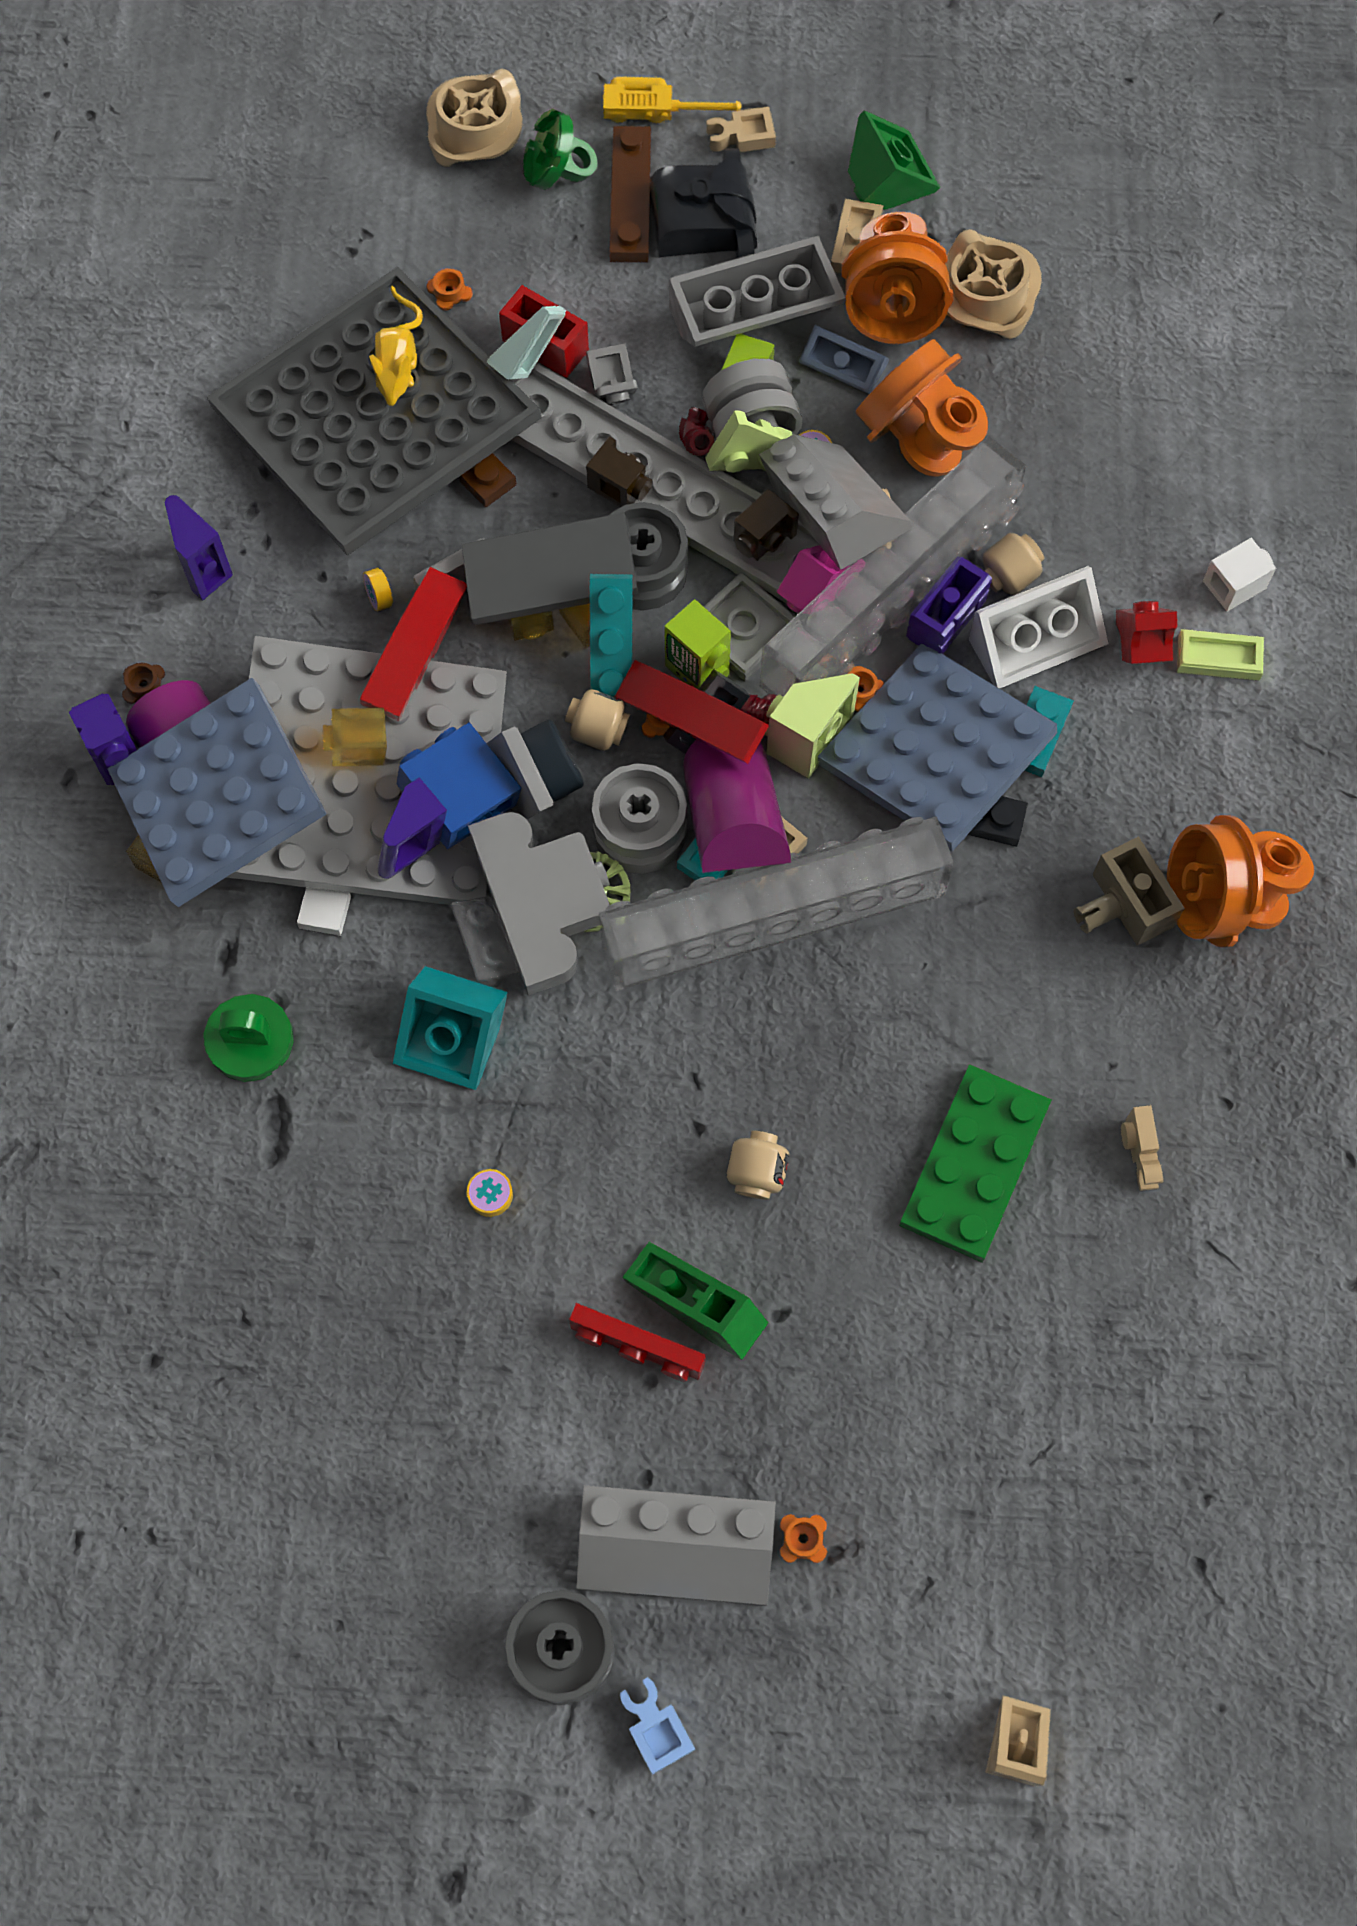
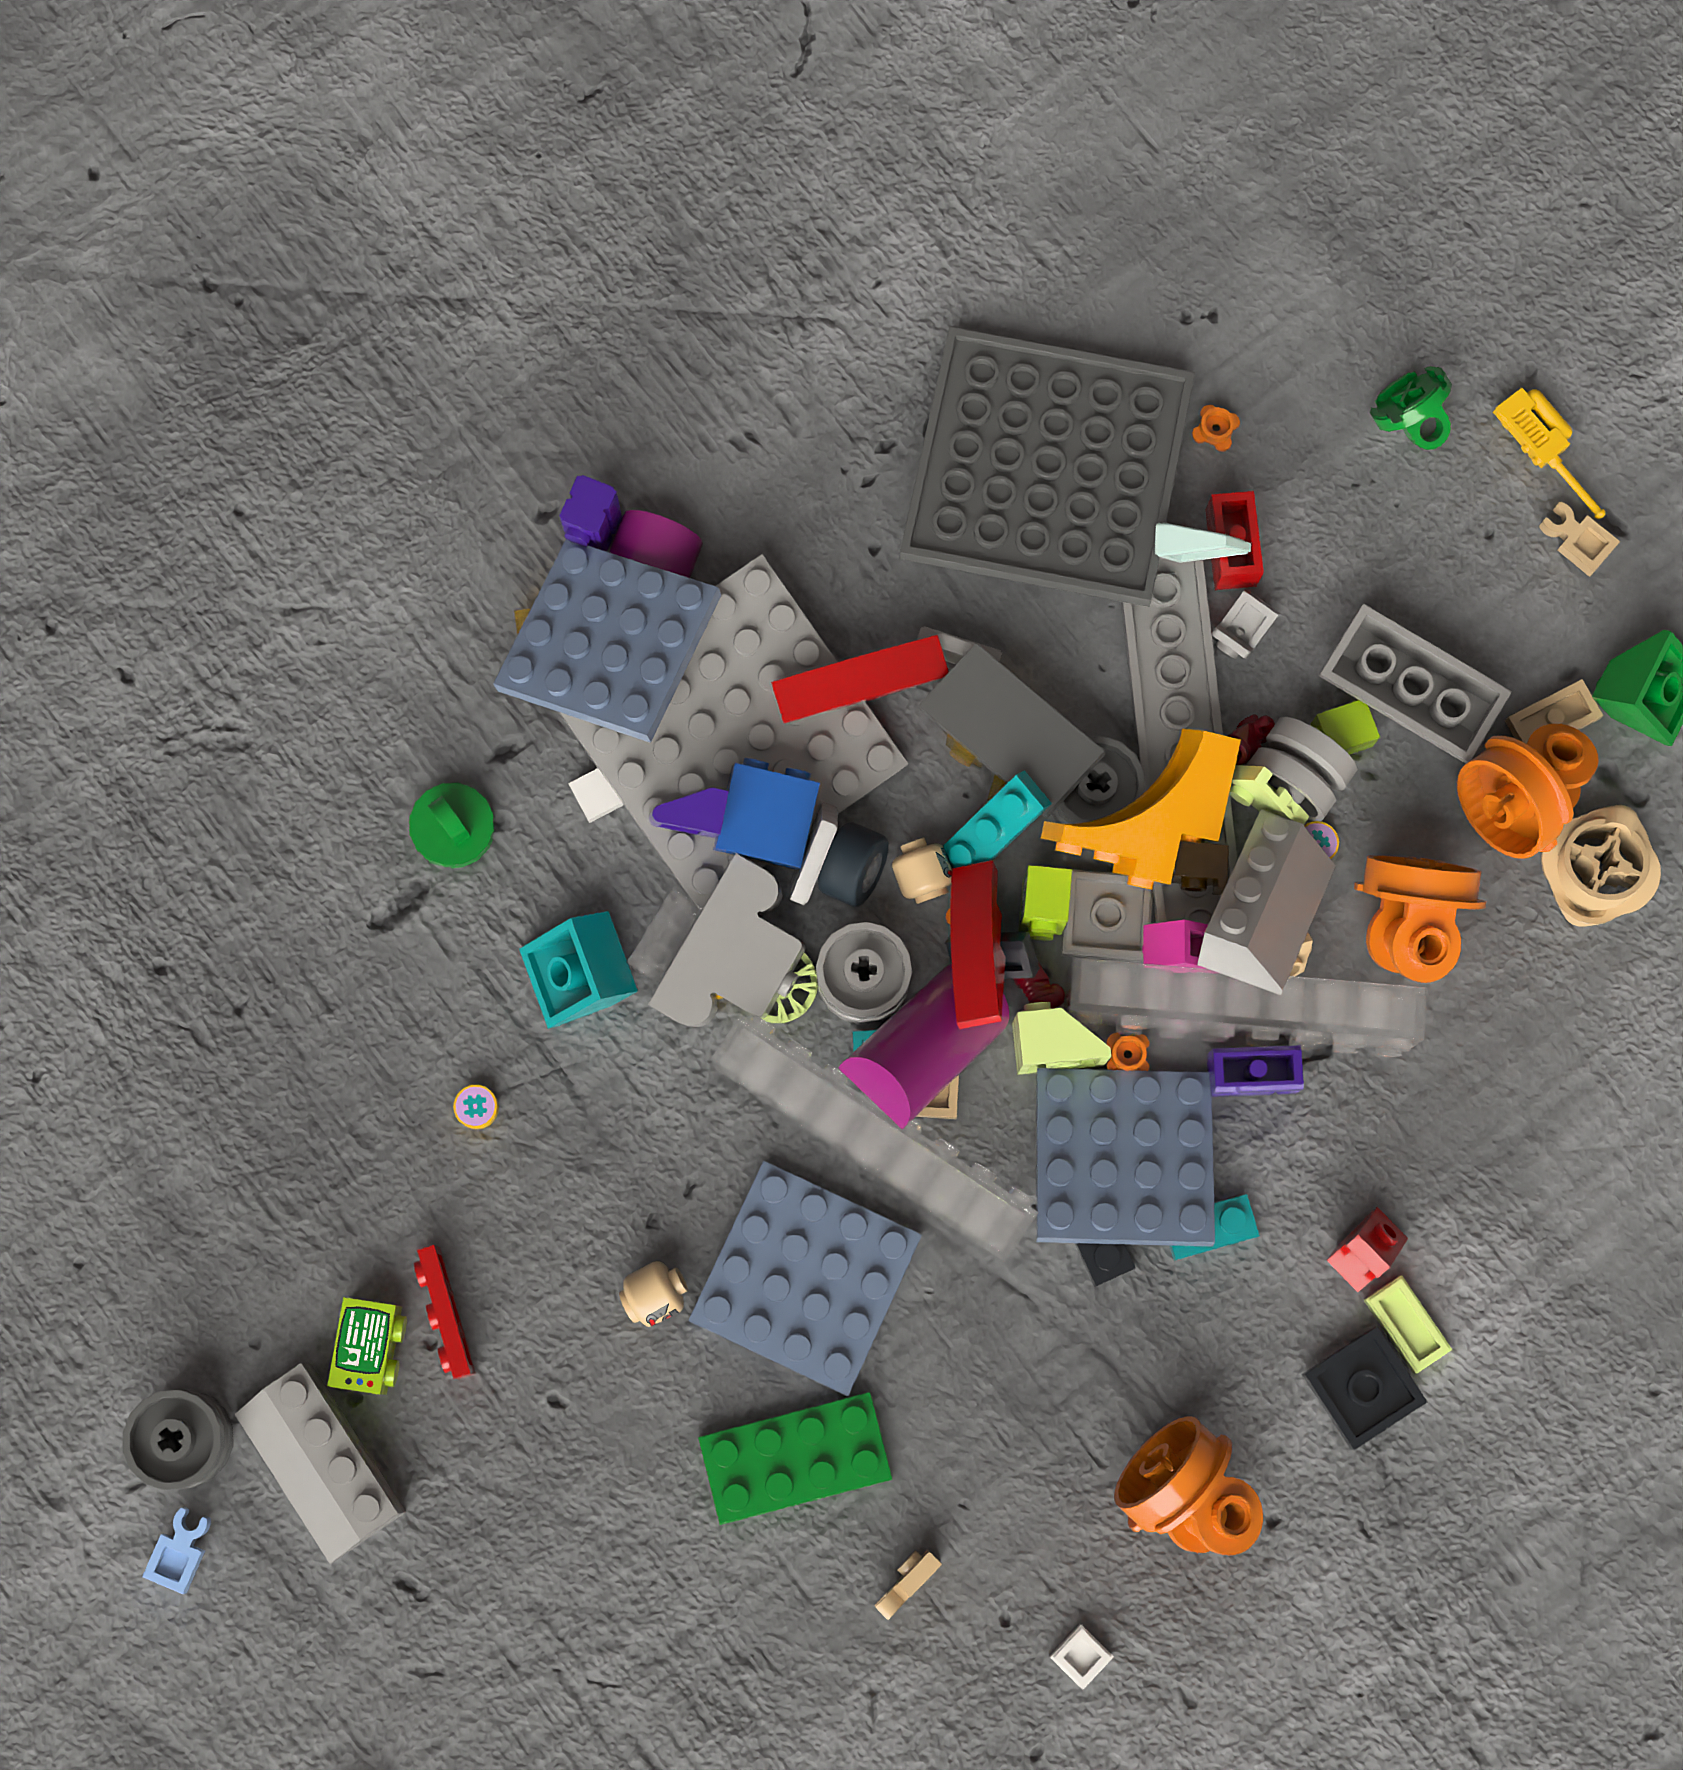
camera: 50 degrees right, 10 degrees up
(139, 673) = (668, 484): reddish brown plate -> none
(197, 548) = (802, 439): dark purple tile -> none
(356, 737) = (738, 705): clear yellow brick -> none
(378, 589) = (894, 605): yellow tile -> none
(396, 355) = (1103, 446): yellow animal -> none
(482, 116) = (1407, 298): tan piece -> none
(488, 480) = (1067, 609): reddish brown plate -> none
(612, 1428) = (367, 1346): none -> brick
(617, 475) = (1146, 712): dark brown brick -> none
(630, 194) = (1437, 495): reddish brown plate -> none
(697, 1300) = (512, 1330): green slope -> none
(704, 208) = (1472, 572): black piece -> none
(708, 503) = (1179, 806): none -> light orange arch
(813, 1529) = (385, 1554): orange plate -> none
(839, 1047) = (805, 1278): none -> sand blue plate
(843, 359) = (1428, 799): sand blue slope -> none
(1013, 563) = (1343, 1091): tan head -> none
(1039, 628) = (1299, 1161): white slope -> none
(1133, 893) = (1116, 1414): dark tan brick -> none
(1239, 574) = (1495, 1287): white brick -> none
(1246, 715) = (1364, 1388): none -> black plate
(1298, 1067) = (1081, 1656): none -> white tile

